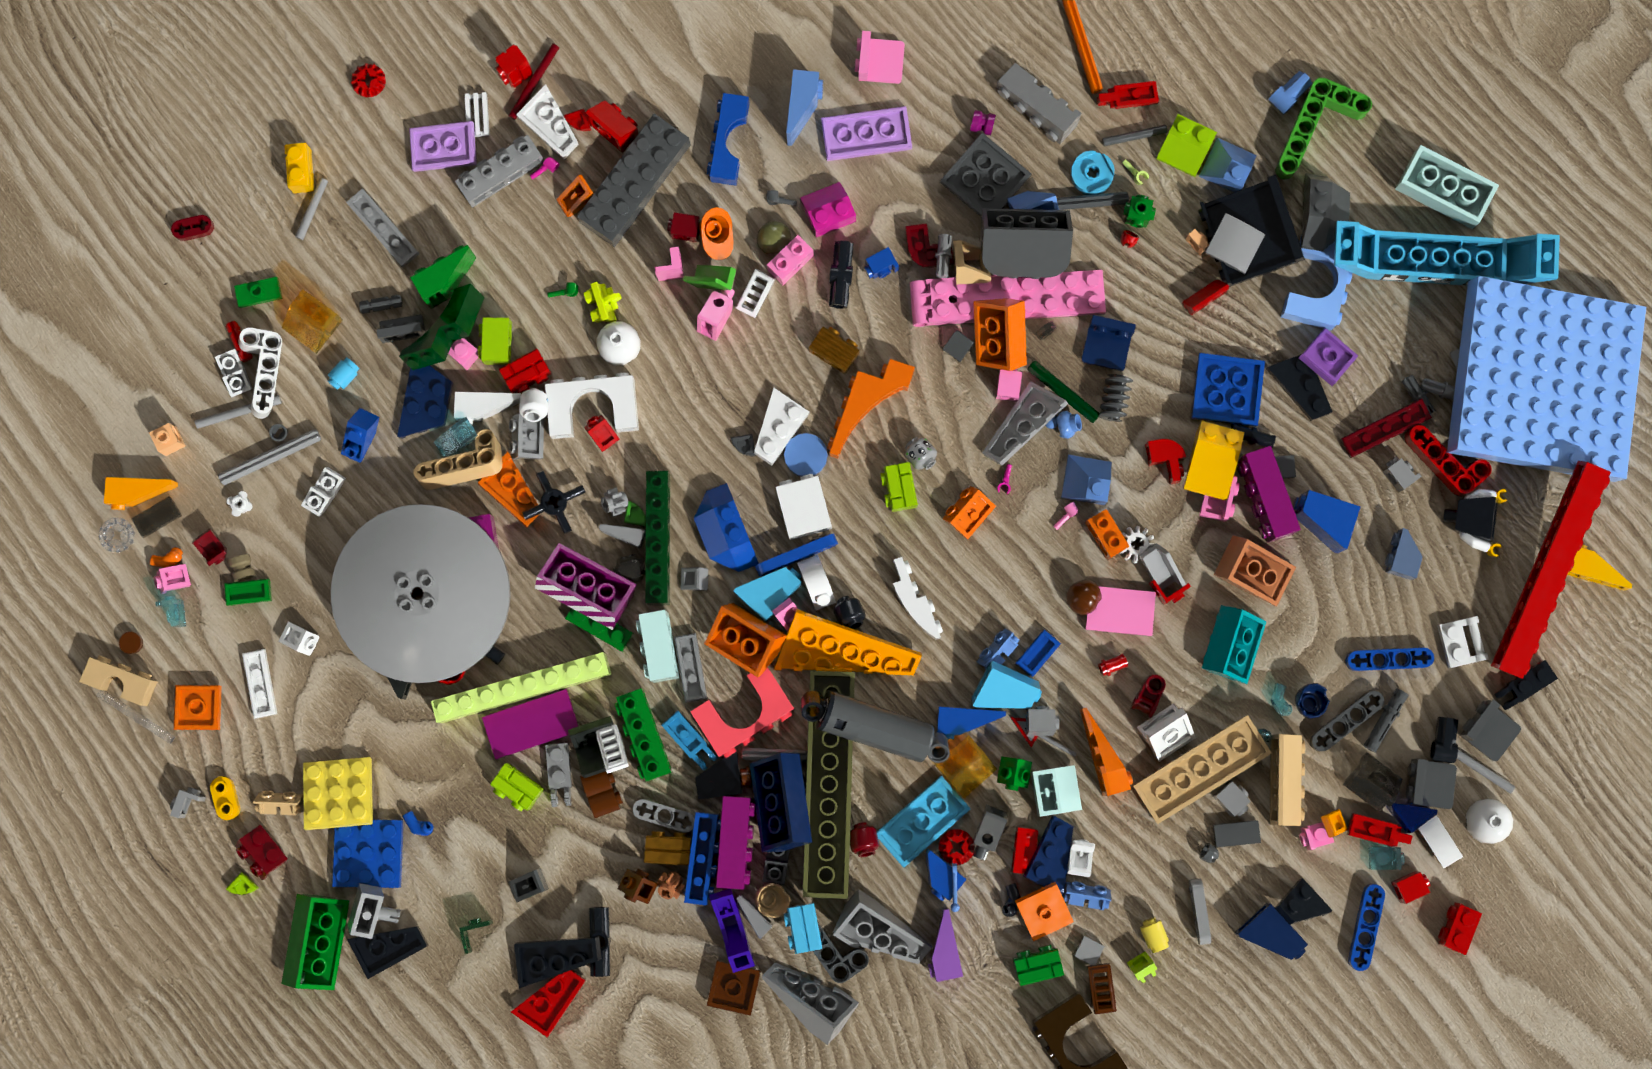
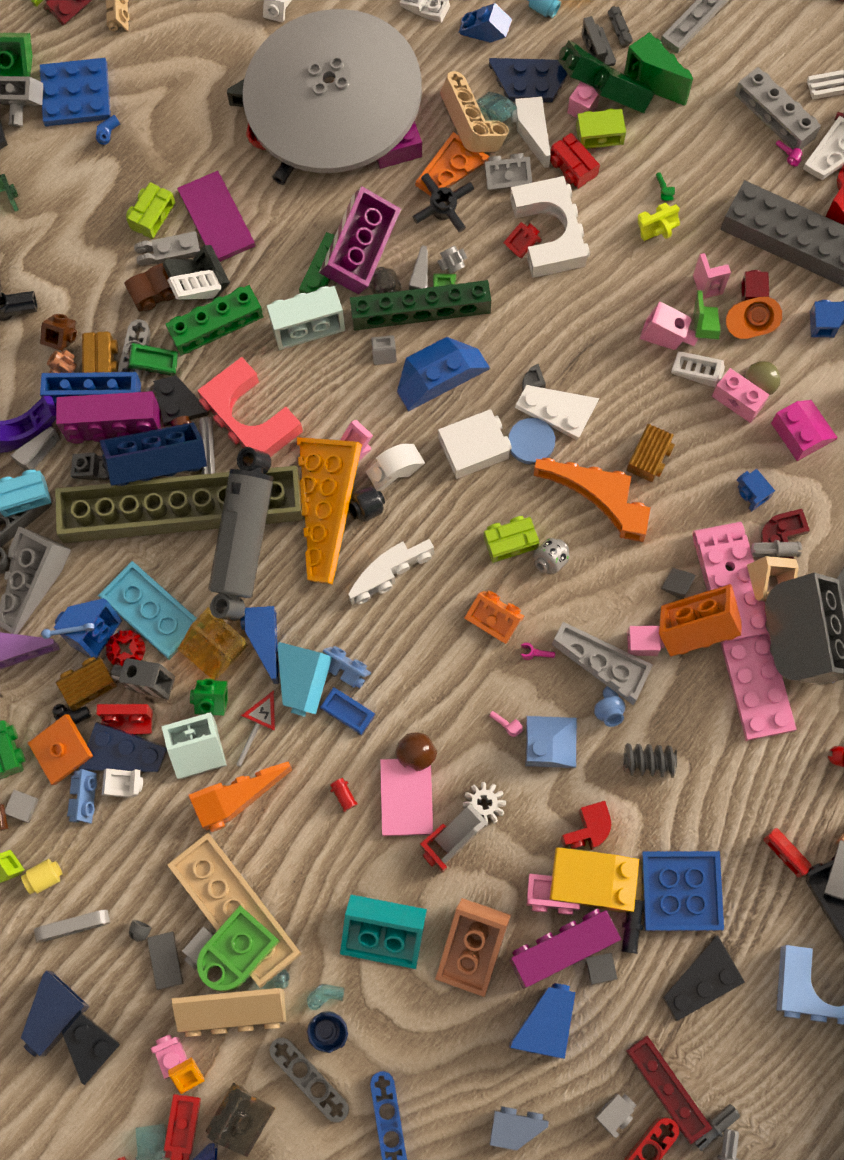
camera: 80 degrees right, 10 degrees down
(337, 793) = (130, 55): light yellow plate -> none
(442, 146) = (792, 57): lavender tile -> none
(521, 688) = (251, 201): yellowish green brick -> none
(528, 885) = (55, 237): dark grey slope -> none
(533, 405) = (540, 167): white head -> none
(575, 196) = (769, 180): orange slope -> none
(618, 343) = (620, 243): white cylinder -> none
(677, 797) = (153, 359): none -> green tile
(687, 738) = (215, 361): dark azure hinge -> none
(690, 667) = (290, 357): light grey tile -> none
(745, 639) = (324, 400): orange slope -> none
(769, 591) = (379, 419): medium azure slope -> none
(772, 900) = (53, 463): tan hair -> none
(773, 199) = (803, 373): dark grey hand -> none
(796, 554) = (422, 443): blue beam -> none
(841, 274) = (734, 450): black piece -> none
(864, 840) = (124, 549): dark red head -> none
(986, 884) = (85, 683): none -> pearl gold brick
(1041, 721) = (270, 721): light grey brick -> none
(1046, 330) = (713, 674): clear smoke tile -> none
(1063, 391) = (647, 703): dark green axle -> none
(1107, 343) = (712, 745): dark blue bracket -> none
(1107, 534) = (490, 767): orange bracket -> none
(1148, 696) = (308, 838): dark red piece -> none
(1167, 731) = (272, 863): white bracket -> none
(1240, 769) = (236, 949): none -> bright green tile
(1328, 356) = (743, 1007): medium lavender tile -> none
(1362, 926) = (68, 1126): blue beam -> none
(1385, 721) = (324, 1132): dark grey pin -> none

